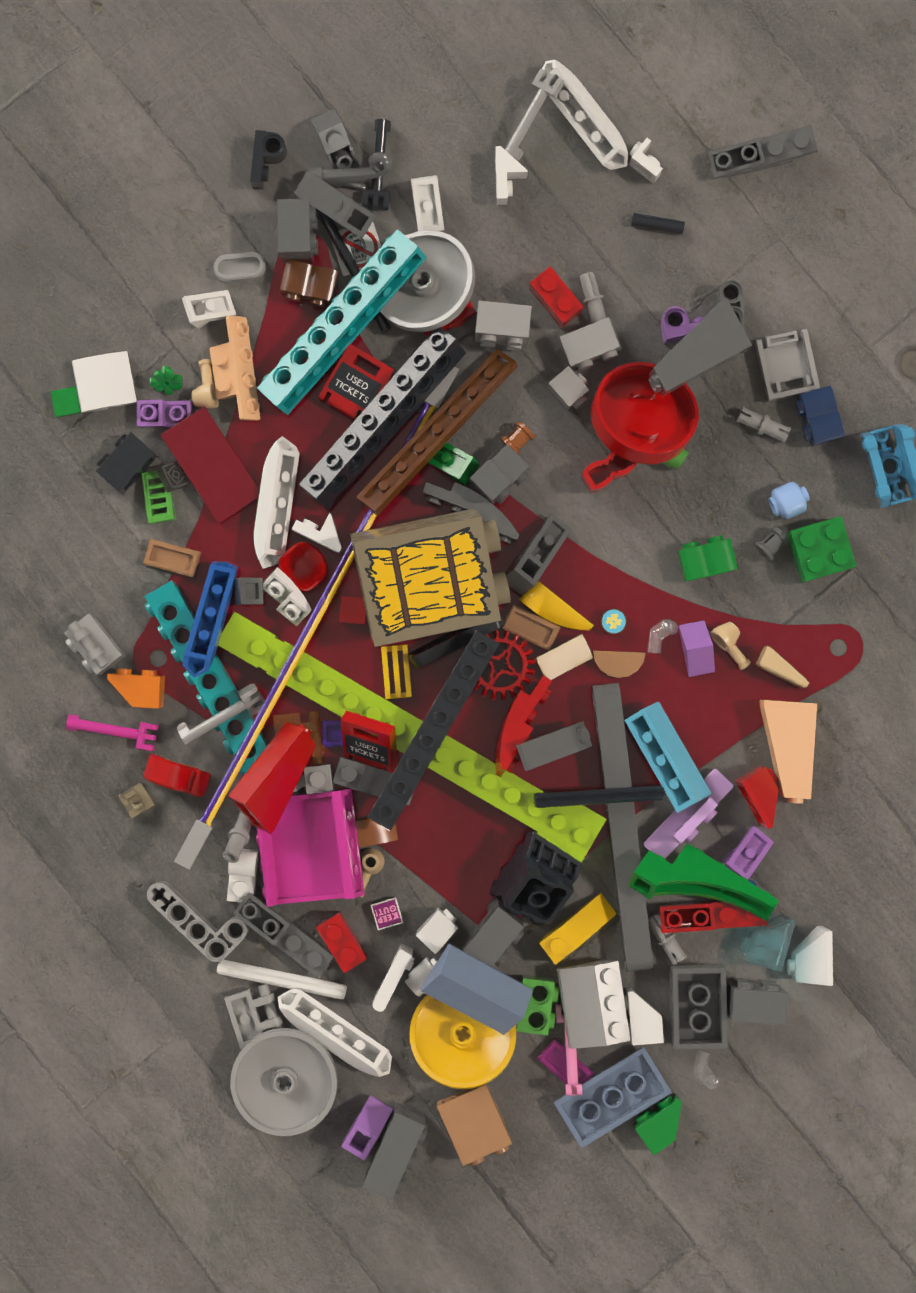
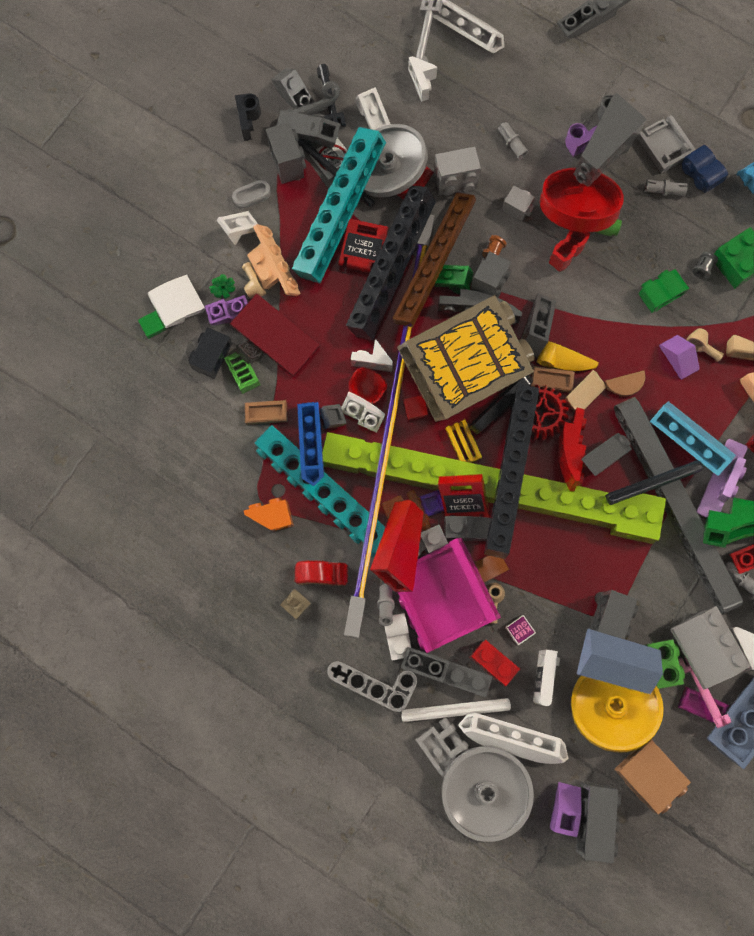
camera: 15 degrees left, 10 degrees down
(74, 723) = (283, 552): dark pink hinge -> none
(94, 644) = (226, 493): light grey brick -> none
(250, 698) = (361, 494): light grey hinge -> none
(275, 502) = (332, 347): white brick -> none
(309, 283) = (306, 187): reddish brown brick -> none
(419, 974) = (567, 669): white brick -> none
(437, 929) = (566, 628): white slope -> none
(536, 880) = (630, 562): black slope -> none
(556, 297) = (488, 144): red brick -> none
(577, 928) = (671, 594): yellow slope -> none
(591, 344) = (524, 167): light grey brick -> none
(613, 621) = (611, 356): tile -> none
(646, 165) = (516, 42): white bracket -> none
(658, 223) = (539, 79): black piece -> none
(659, 632) = (647, 354): clear arm -> none
(788, 500) = (705, 232): light blue head -> none

